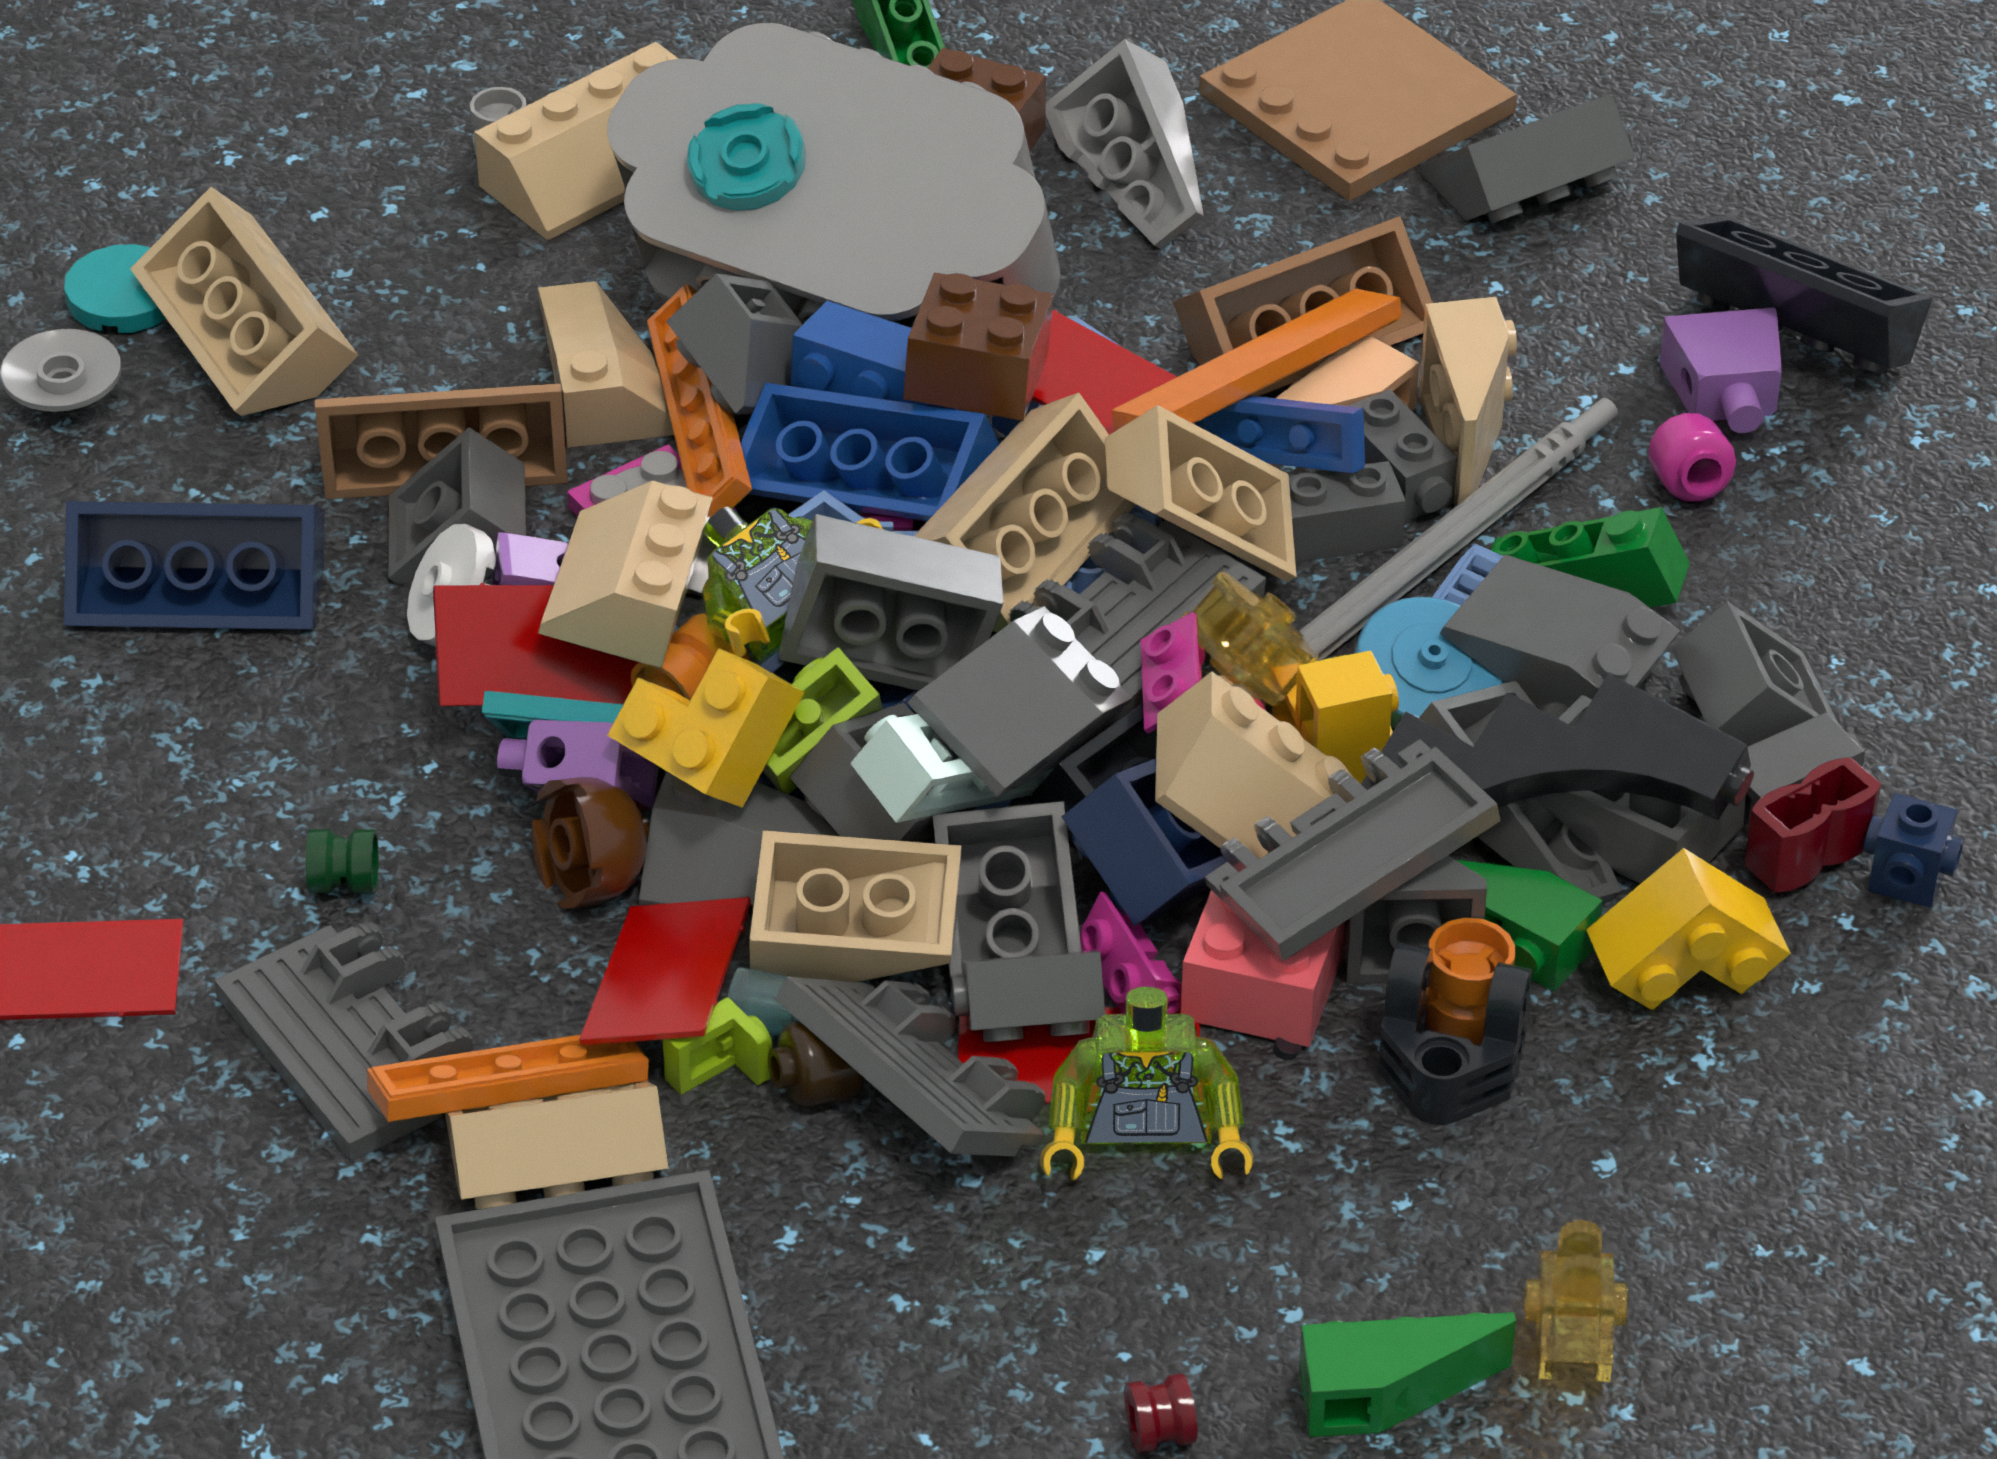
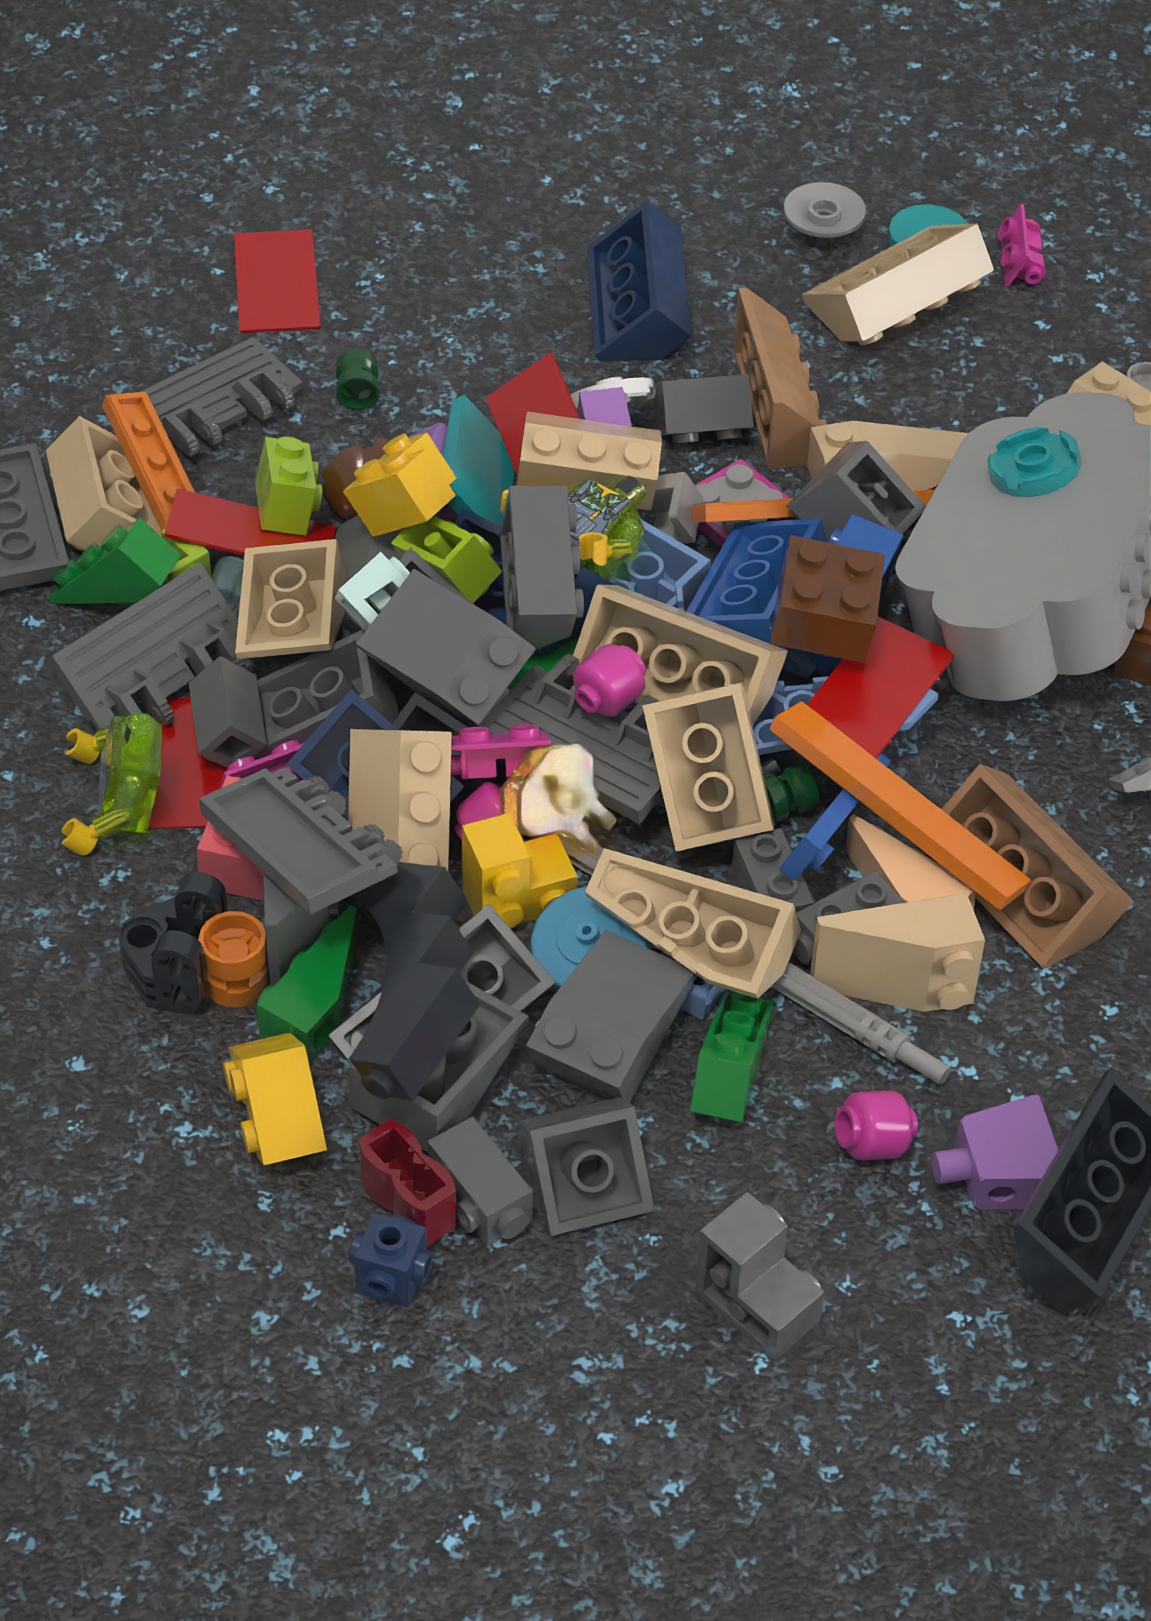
camera: 85 degrees right, 5 degrees up
(157, 202) = (1021, 248): none -> dark pink hinge
(592, 919) = (287, 486): none -> lime brick
(760, 1097) = (120, 570): none -> green slope
(1087, 556) = (609, 680): none -> dark pink head
(1451, 531) = (706, 925): none -> tan wedge
(1915, 554) = (751, 1280): none -> flat silver brick

